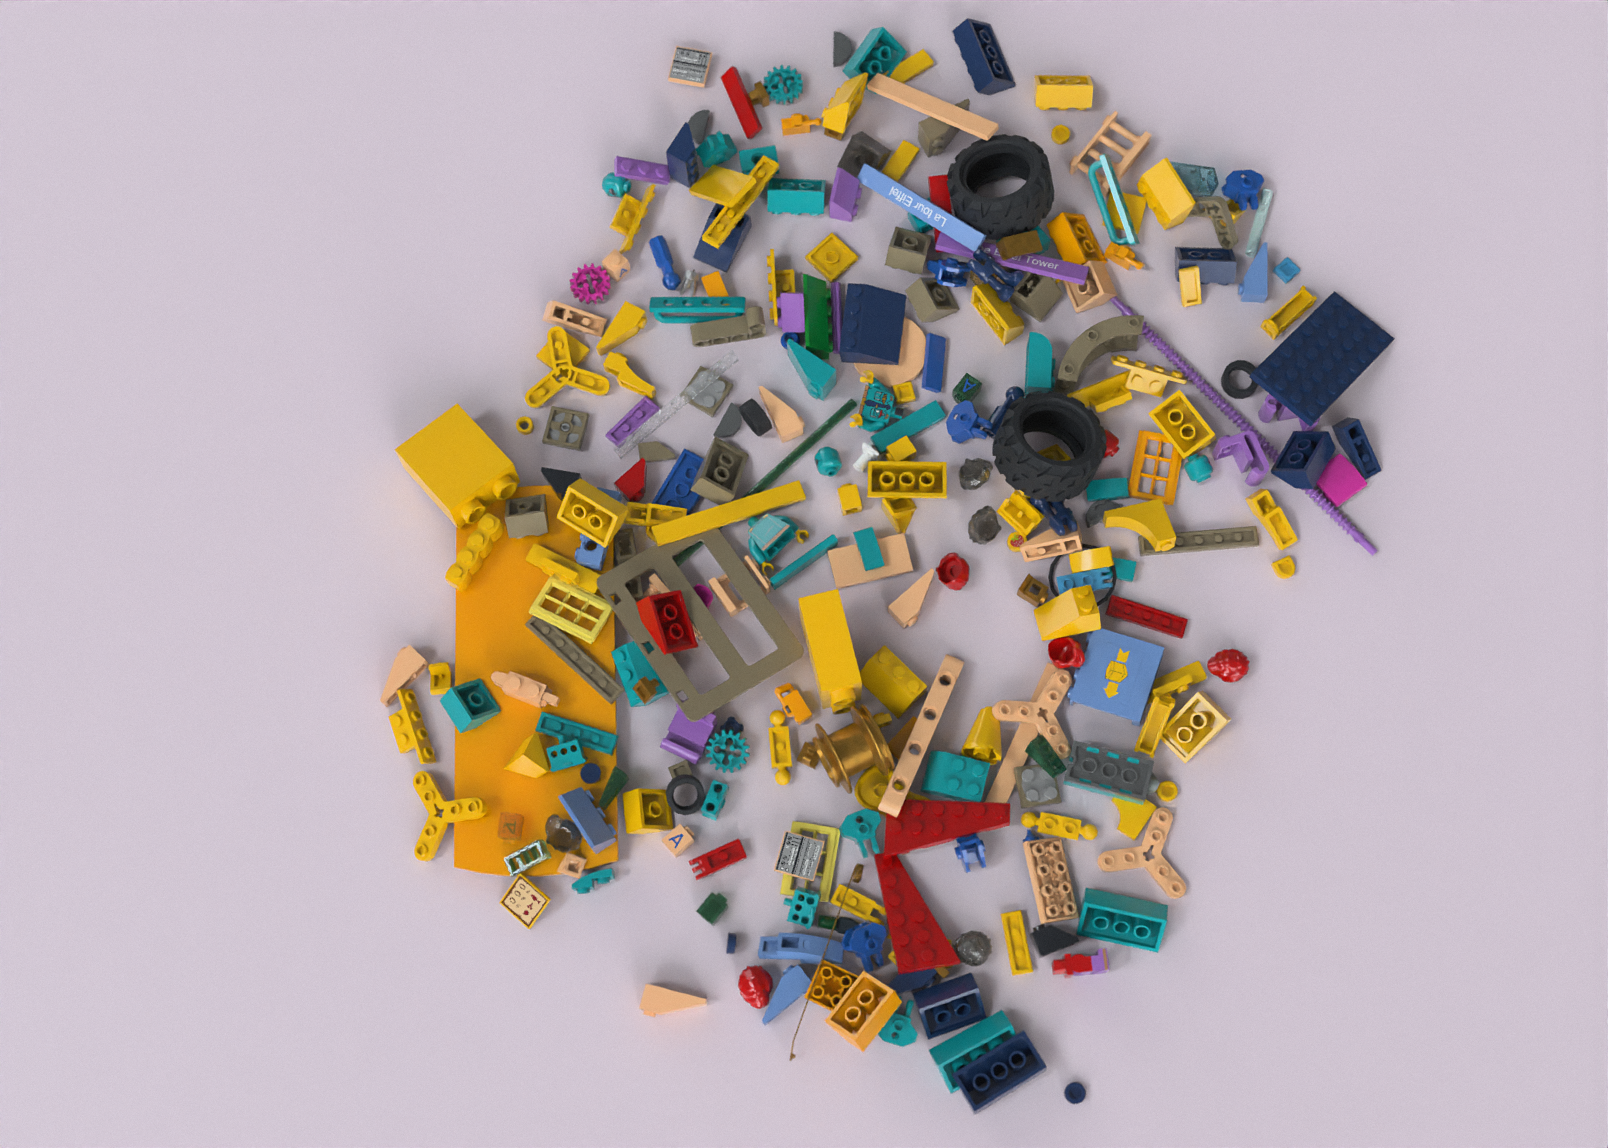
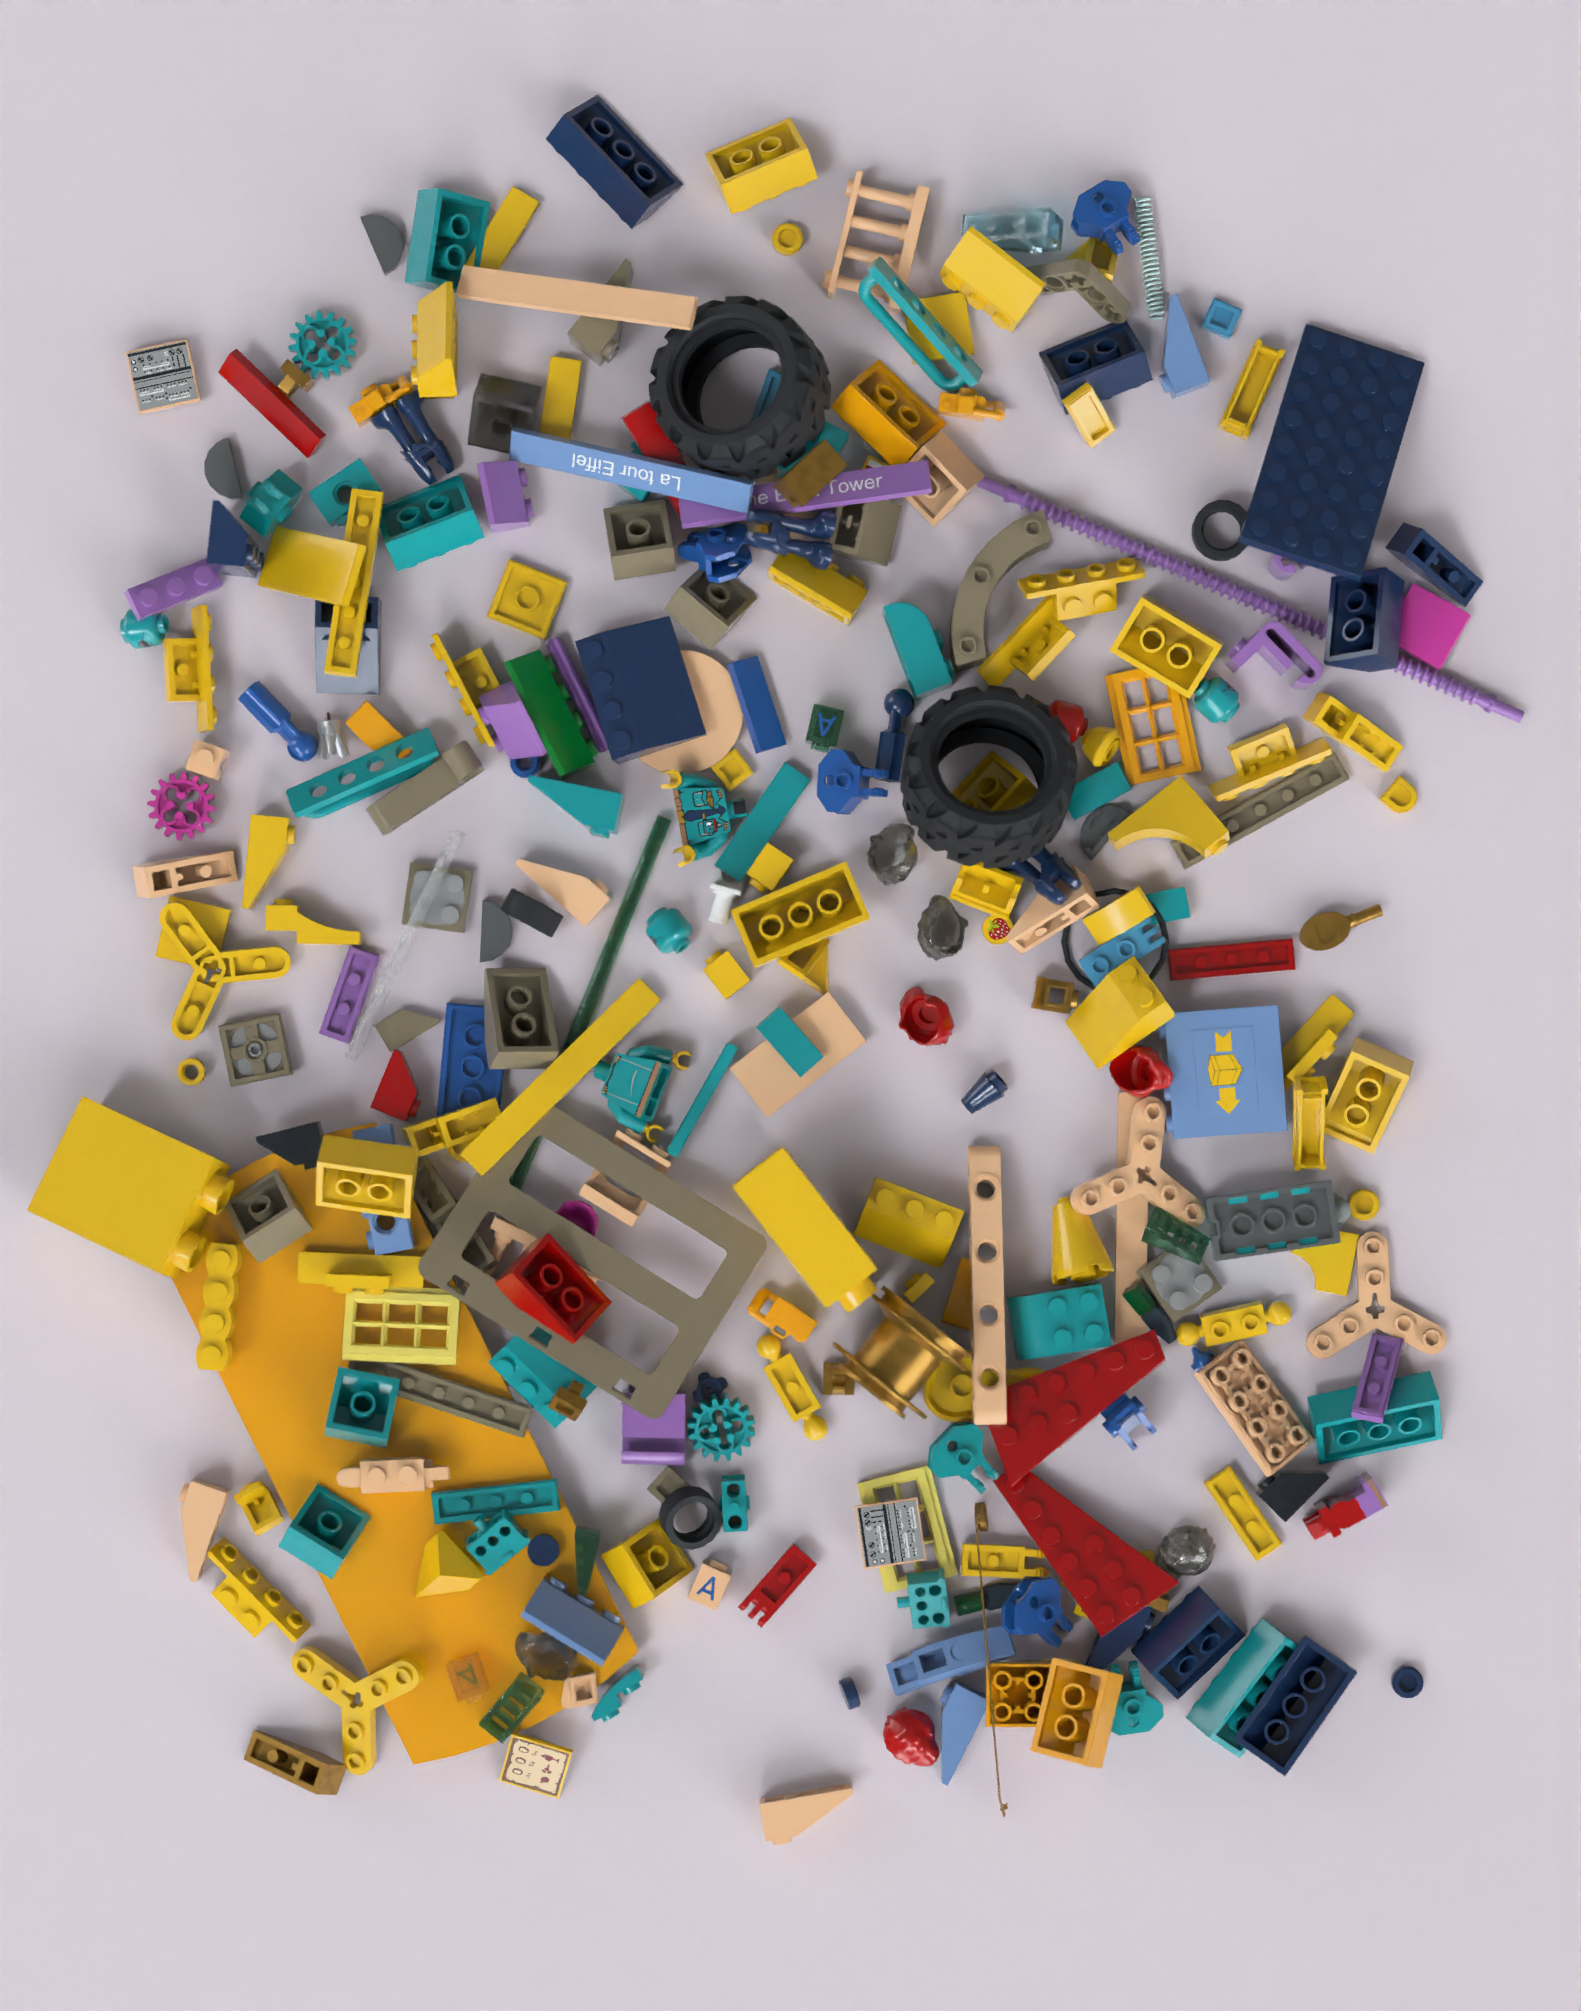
camera: 20 degrees left, 15 degrees up
(387, 836) = (296, 1763): none -> pearl gold slope
(526, 643) = (362, 1407): none -> teal slope
(713, 908) = (802, 1657): clear green brick -> none
(807, 158) = (415, 453): none -> dark blue piece
(908, 605) = (884, 1095): light nougat slope -> none
(969, 628) = (984, 1092): none -> dark blue cone
(1010, 790) = (1151, 1314): none -> piece
(1121, 464) = (1100, 744): none -> yellow cone
(1133, 893) = (1377, 1378): none -> medium lavender tile
(1212, 623) = (1332, 928): none -> pearl gold piece
(1213, 510) = (1265, 758): none -> yellow bracket
(1228, 665) = (1378, 984): red hair -> none

